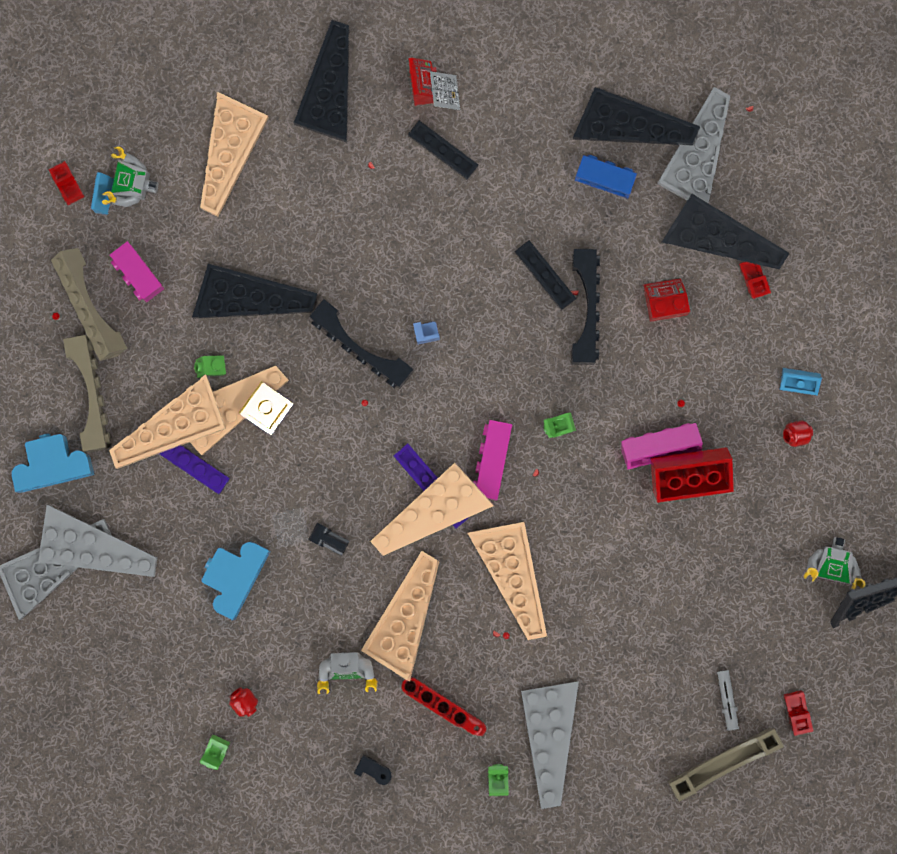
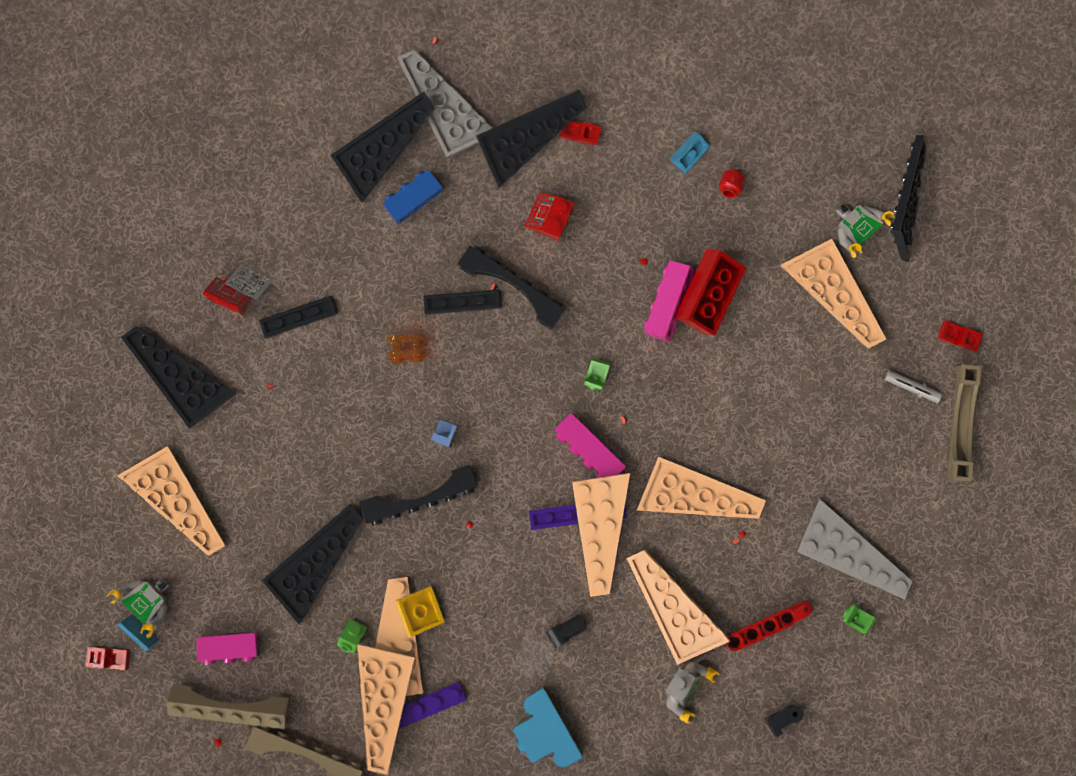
camera: 60 degrees left, 0 degrees up
(465, 251) = (397, 355): none -> clear orange brick
(768, 574) = (832, 285): none -> light nougat wing

